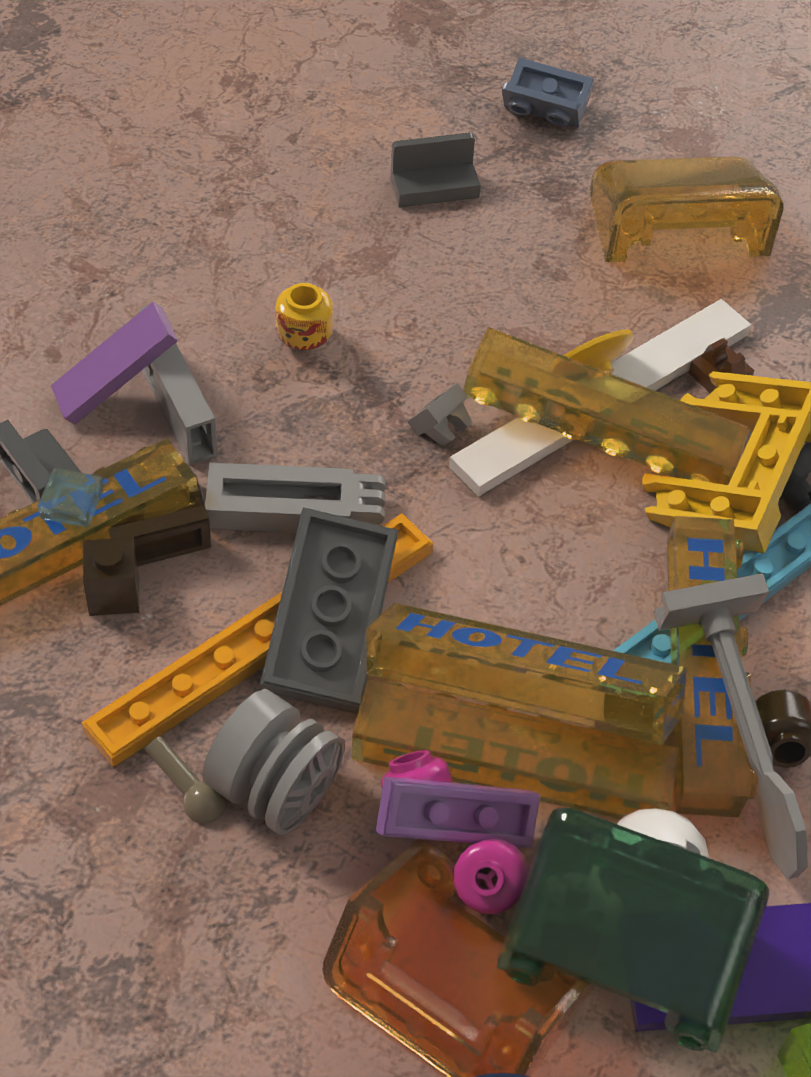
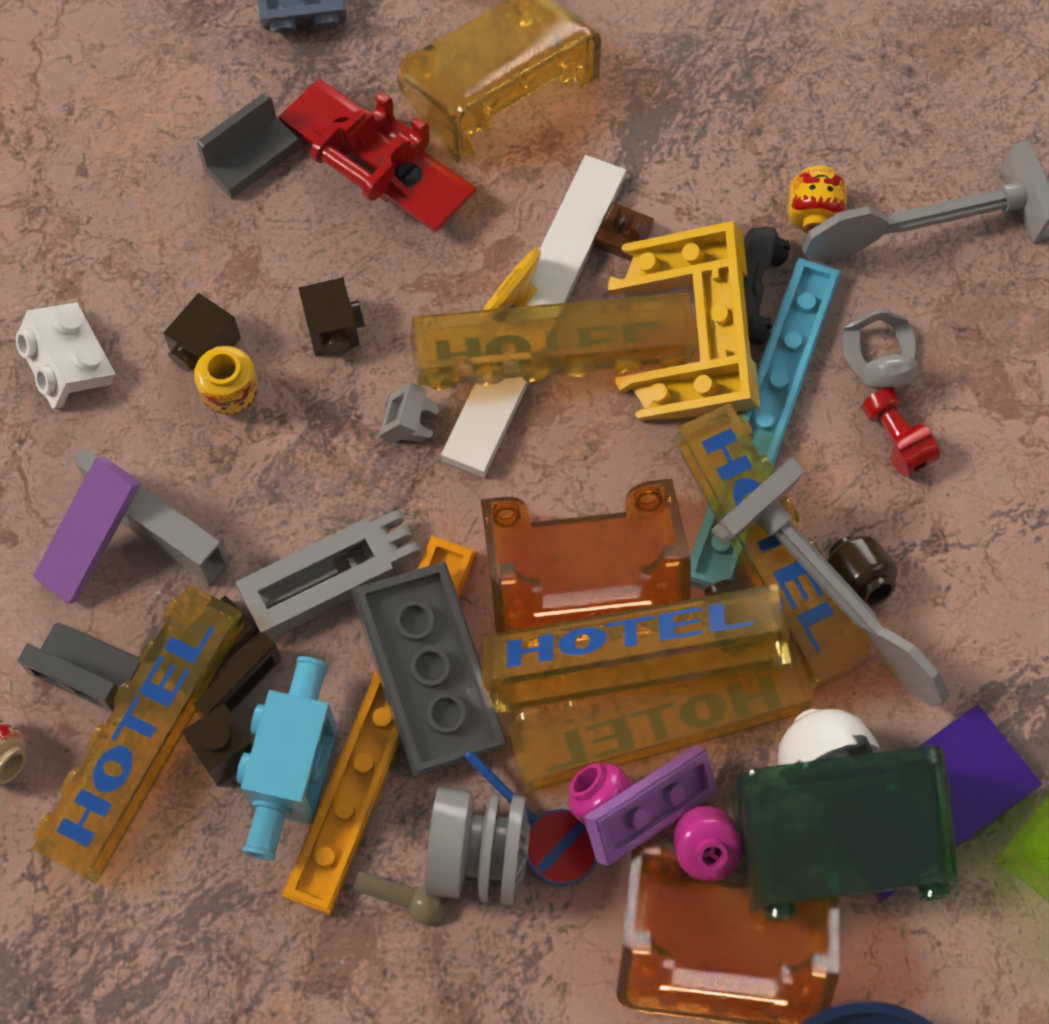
camera: 25 degrees left, 15 degrees up
(70, 497) = (143, 695): clear light blue tile -> none
(158, 608) = (287, 757): none -> medium azure brick
(188, 243) = (62, 352): none -> white bracket
(307, 266) = (199, 329): none -> dark brown brick
(349, 807) = (558, 841): none -> red piece
(422, 314) = (331, 317): none -> dark brown brick
(476, 580) = (585, 563): none -> clear orange windscreen
(551, 226) = (396, 152): none -> red piece

